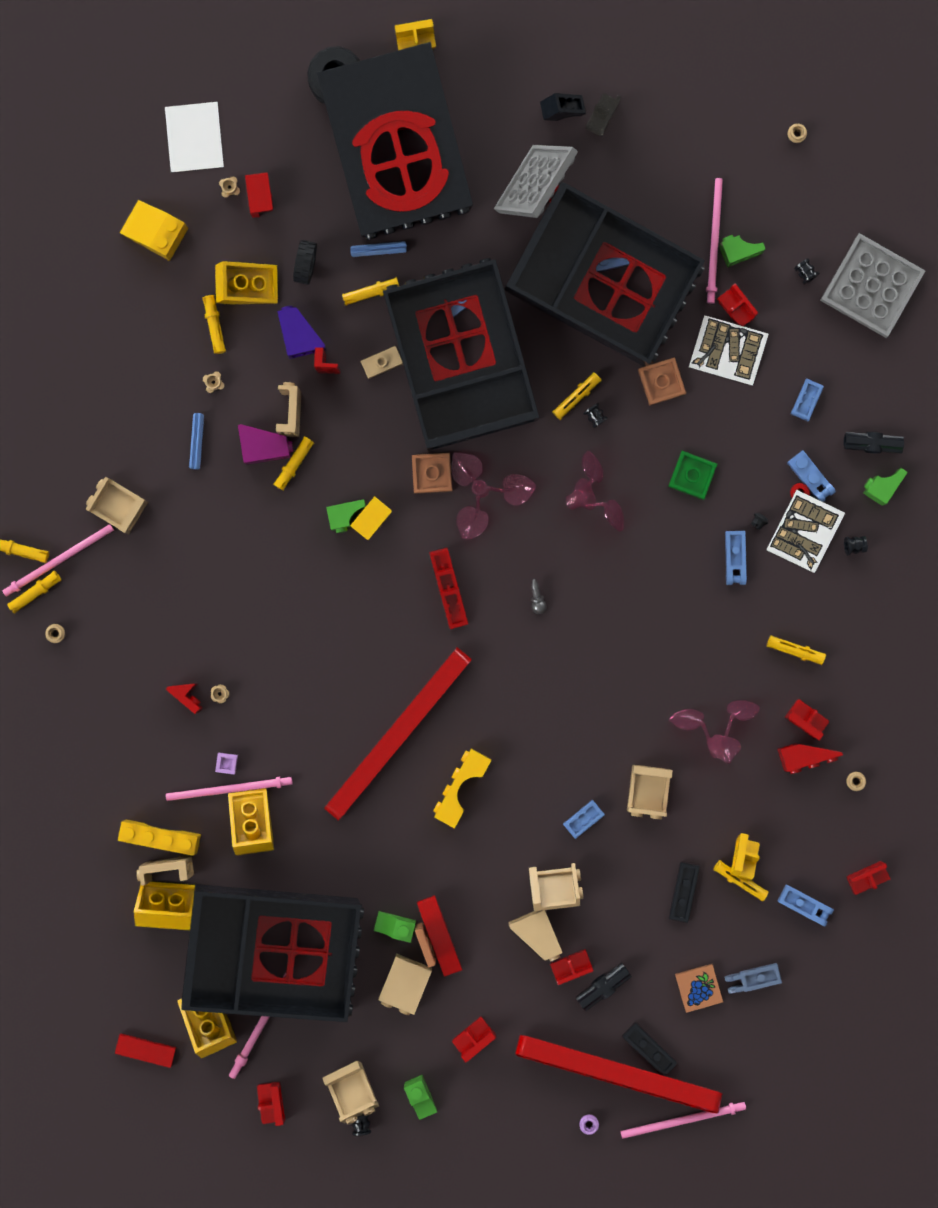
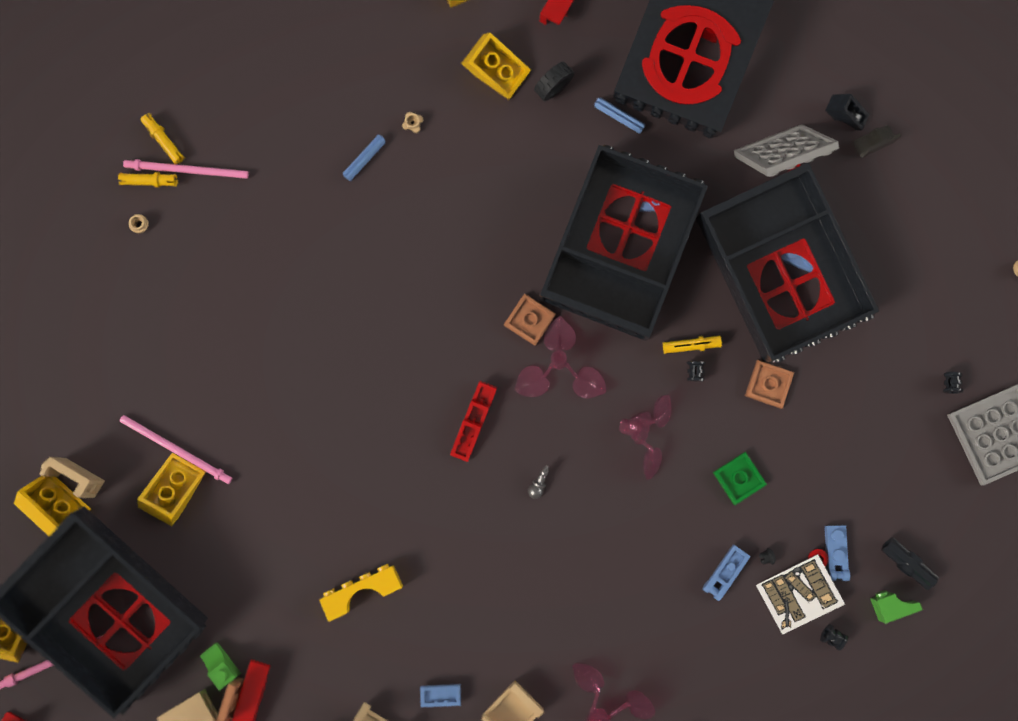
camera: 30 degrees right, 5 degrees down
(116, 505) = (263, 160): tan panel -> none
(158, 838) = (77, 433): yellow arch -> none
(181, 693) = (197, 345): red slope -> none
(212, 317) = (451, 71): yellow pin -> none
(224, 693) = (227, 362): tan plate -> none
(226, 763) = (189, 427): lavender plate -> none
(263, 445) = (412, 198): magenta slope -> none
(289, 470) = (426, 230): yellow pin -> none
(291, 429) = (457, 189): tan panel -> none
(297, 333) = (506, 133): dark purple slope -> none
(321, 365) = (506, 169): red panel -> none
(342, 514) = (432, 299): bright green arch -> none
(368, 292) = (583, 140): yellow pin -> none
(371, 518) = (453, 318): yellow panel -> none
(381, 362) = (555, 203): tan plate -> none
(397, 733) = (342, 508): red beam -> none
(712, 289) = (864, 340): bright pink bar -> none
(728, 350) = (842, 399): sticker -> none
(736, 250) = (907, 324): bright green arch -> none
(737, 306) = (876, 369): red panel -> none
(804, 653) = (726, 695): yellow pin -> none
(807, 400) = (878, 487): medium blue plate -> none

